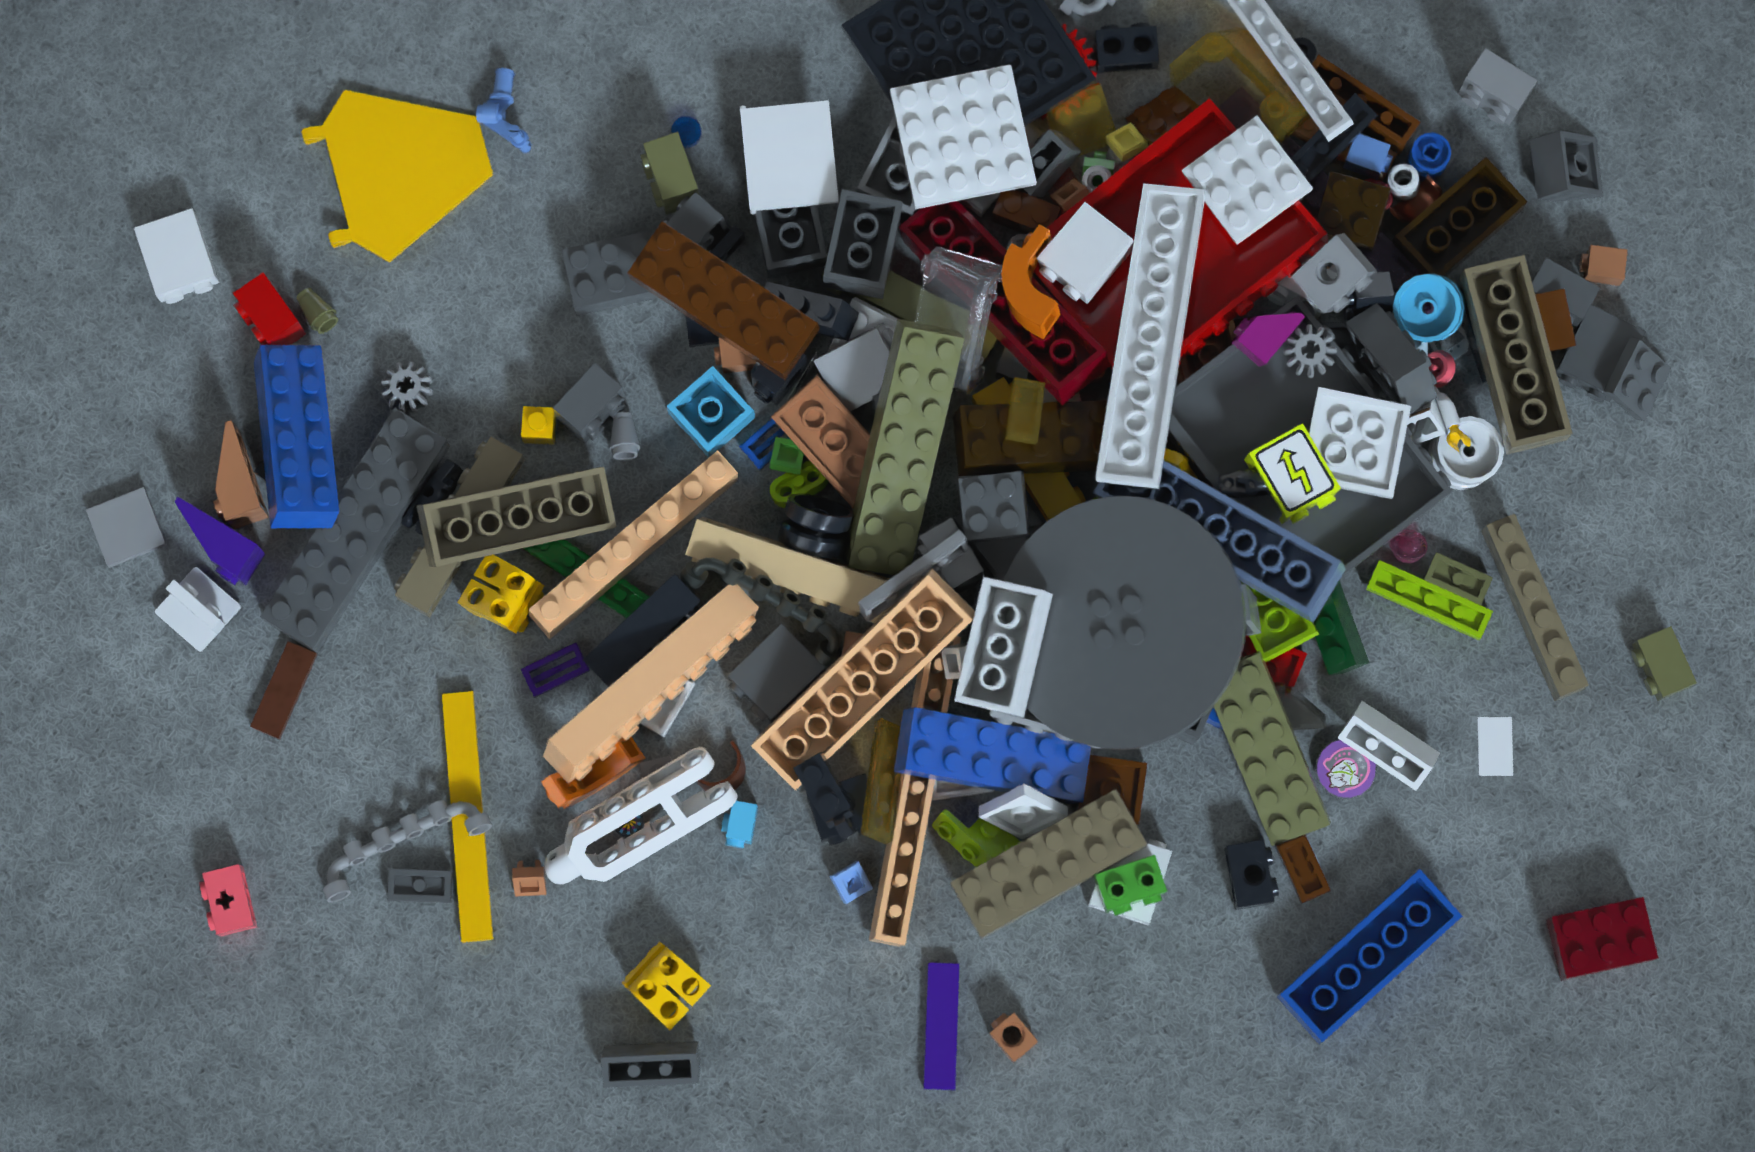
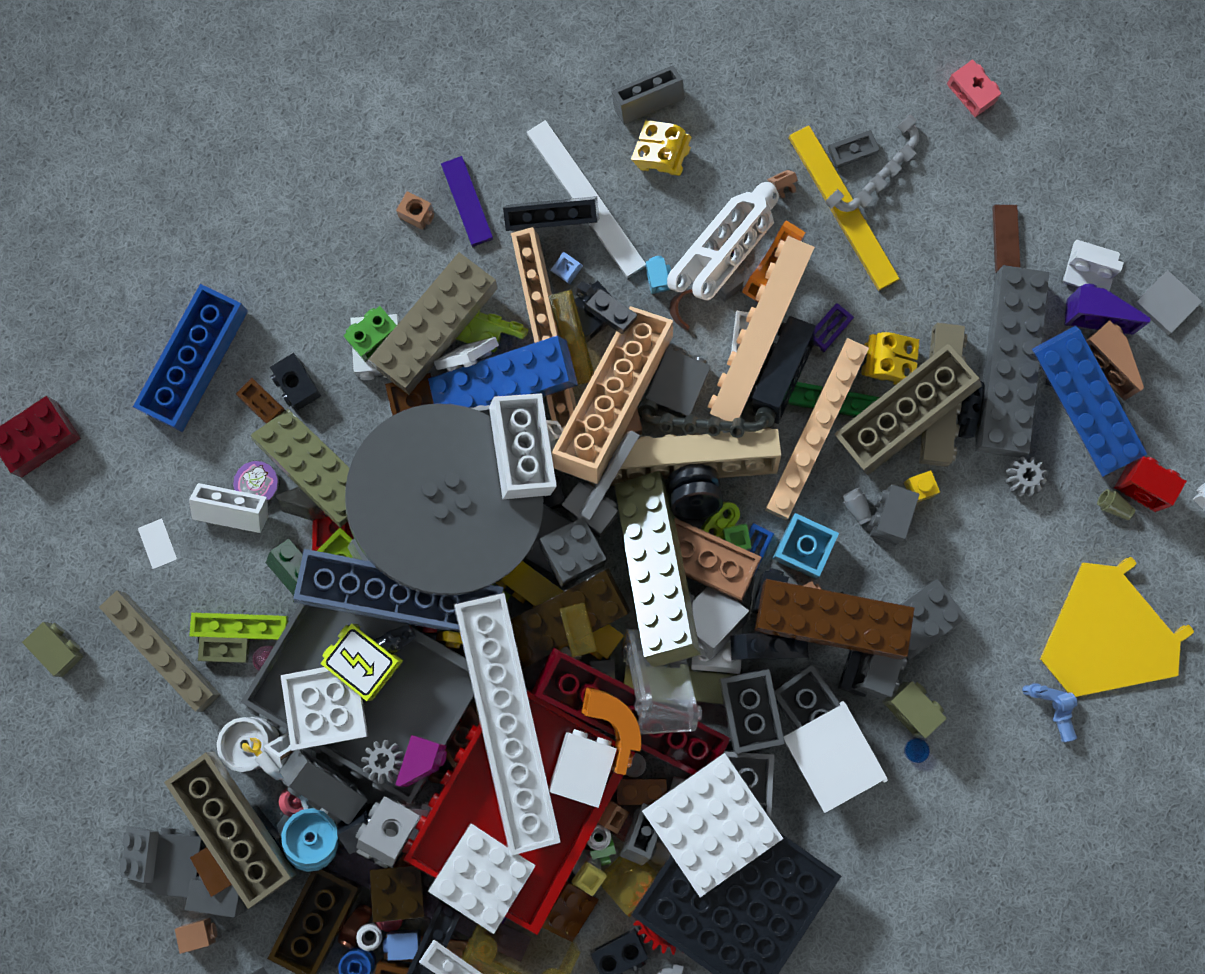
camera: 160 degrees right, 0 degrees up
(788, 966) = (577, 187): none -> white tile
(842, 953) = (551, 213): none -> black brick

